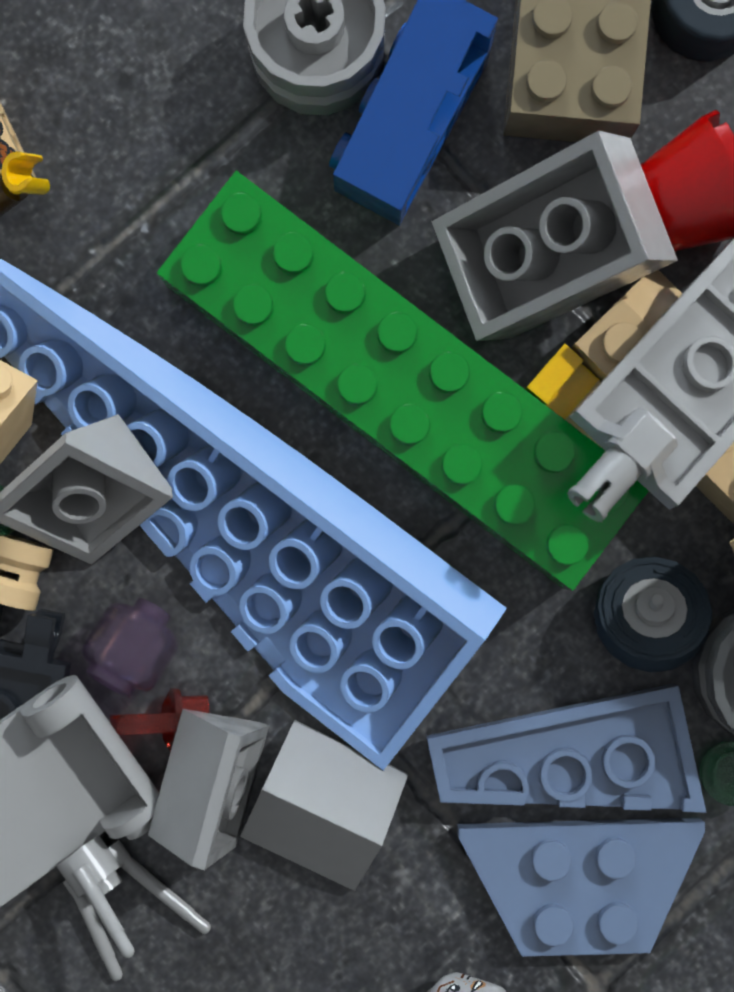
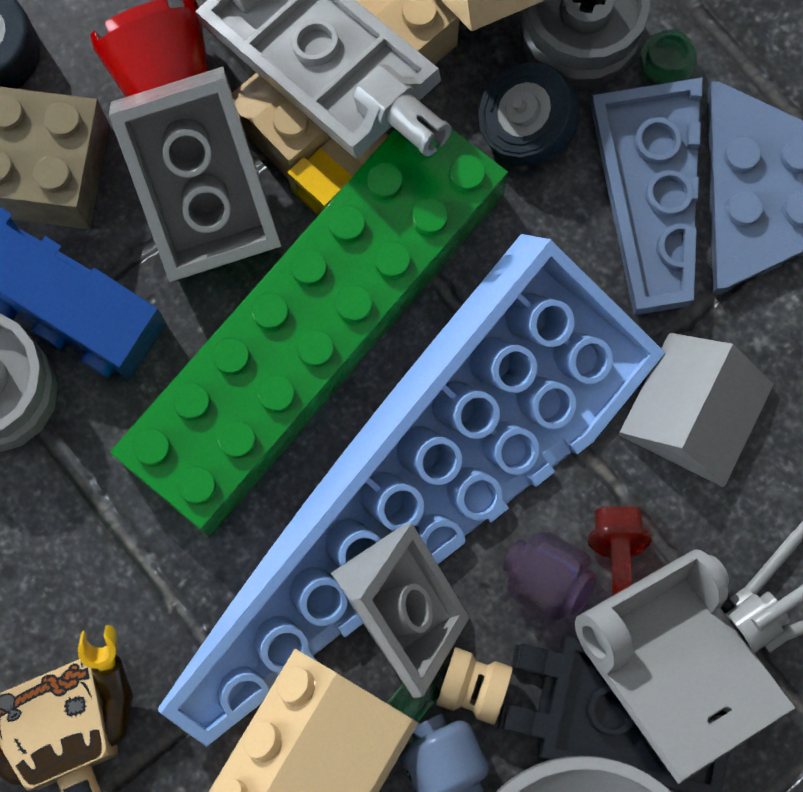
camera: 90 degrees left, 10 degrees down
(207, 786) = (678, 505): light grey slope -> none

